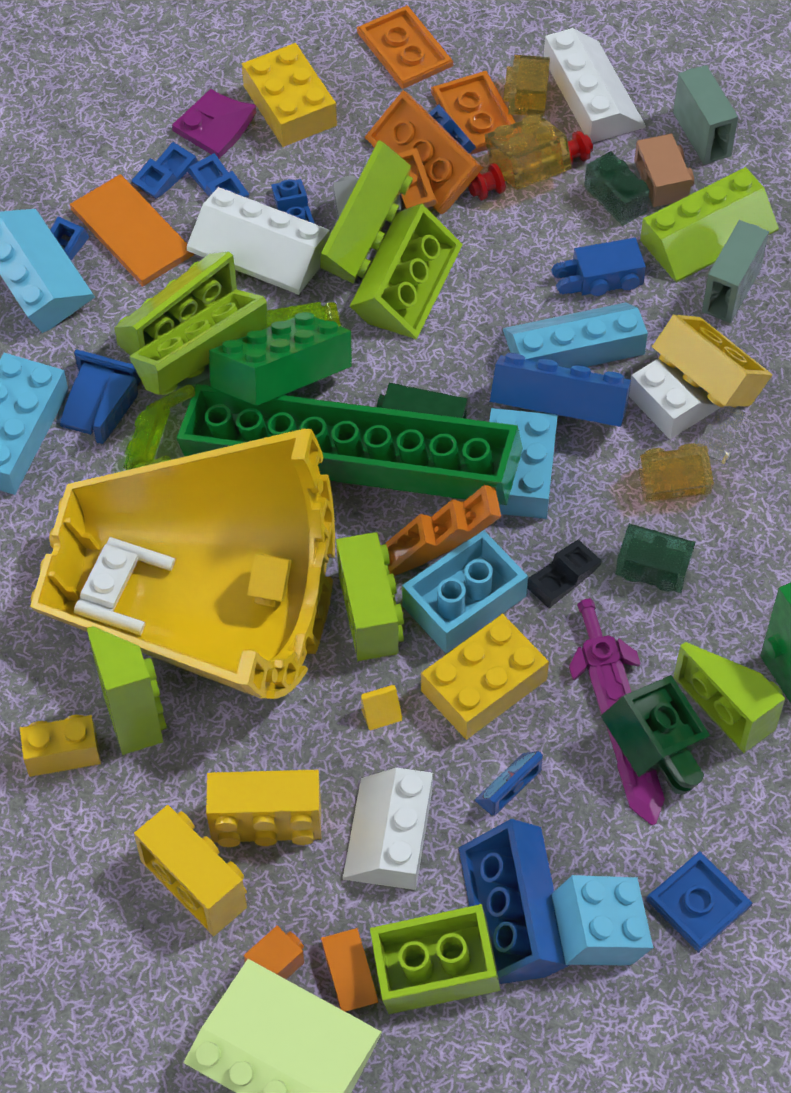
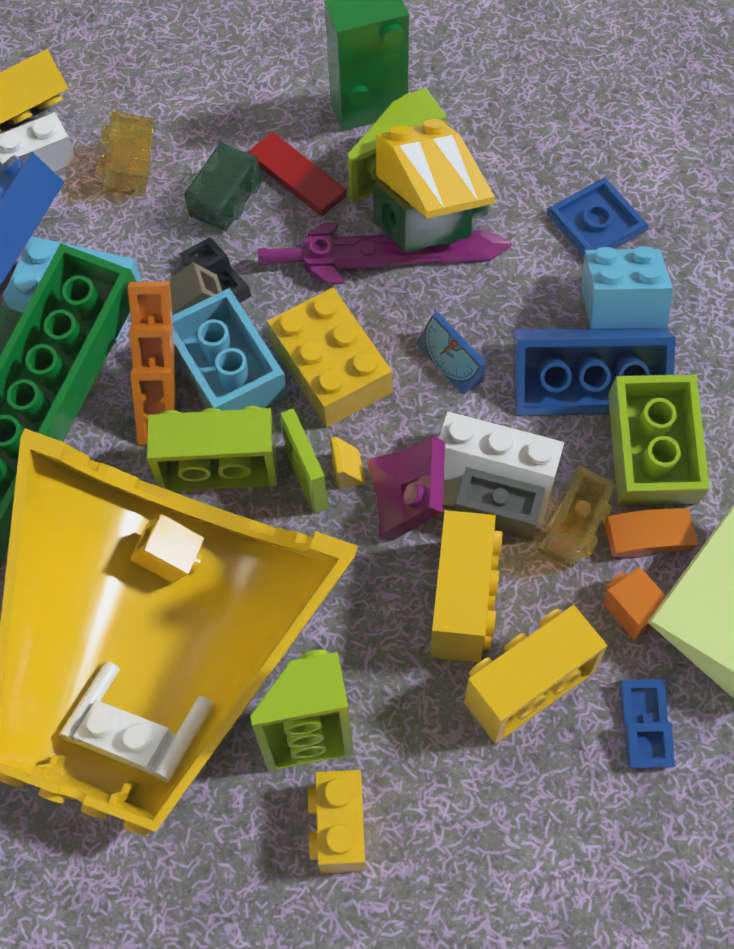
camera: 80 degrees left, 5 degrees up
(167, 979) = (646, 723): none -> blue slope
(347, 896) = (575, 518): none -> clear yellow brick
(353, 829) = (511, 500): none -> dark grey panel
(361, 755) = (408, 486): none -> magenta plate
(367, 666) = (304, 461): none -> lime tile
(530, 553) = (192, 286): none -> dark tan brick
(678, 716) = (431, 169): none -> yellow slope
(695, 619) = (298, 174): none -> red tile

